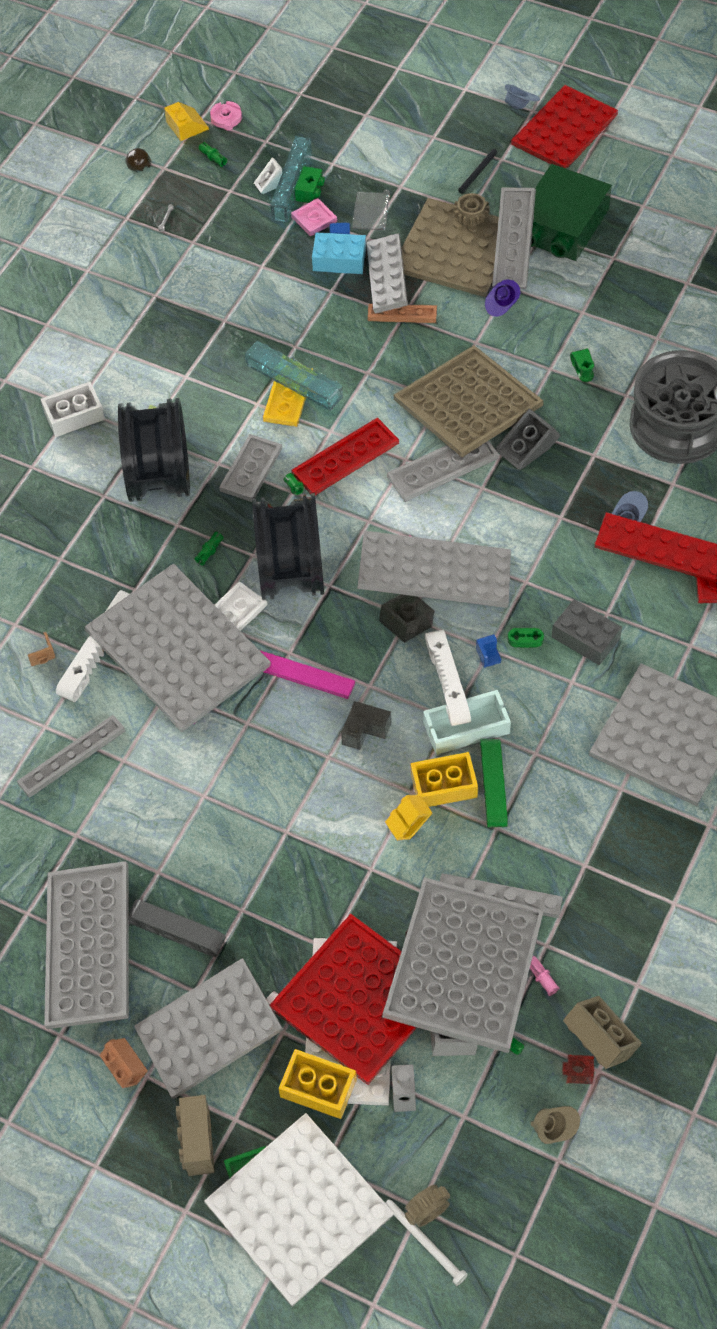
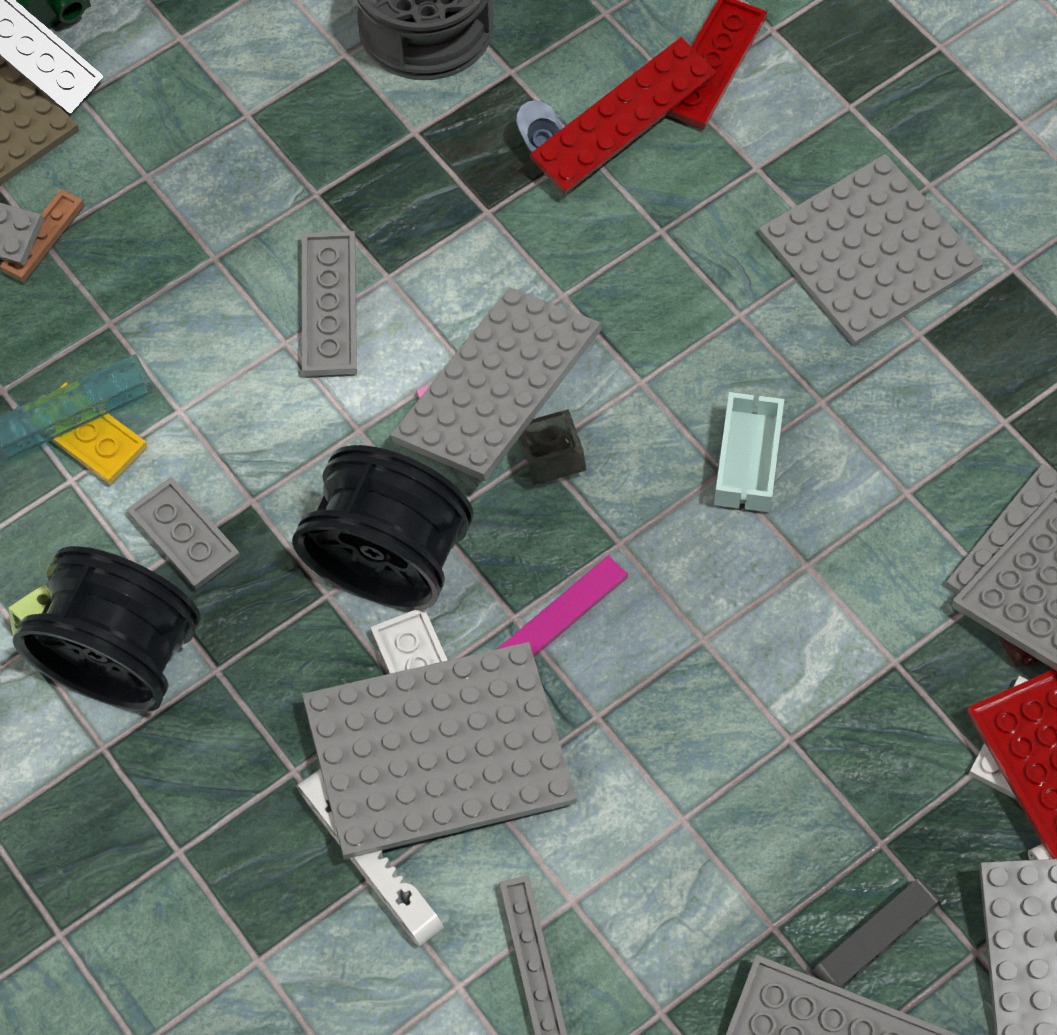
camera: 65 degrees left, 5 degrees up
(42, 656) = (336, 923): medium nougat bracket -> none
(209, 548) = (288, 644): green pin -> none
(295, 486) = (245, 491): green pin -> none
(345, 456) = (240, 410): red plate -> none
(362, 721) = (680, 572): clear smoke brick -> none
(408, 817) = (858, 572): yellow piece -> none
(442, 658) = (630, 434): white gear -> none
(445, 779) = (820, 516): yellow brick -> none
(467, 400) = (246, 225): dark tan plate -> none
(487, 651) = (649, 385): blue panel -> none
(493, 783) = (847, 464): green beam -> none
(502, 297) = (100, 108): dark purple piece -> none
(525, 637) = (645, 330): green beam -> none
(527, 440) = (353, 189): dark grey slope -> none
(583, 364) = (268, 71): green piece -> none
(586, 632) = (685, 261): dark grey brick -> none

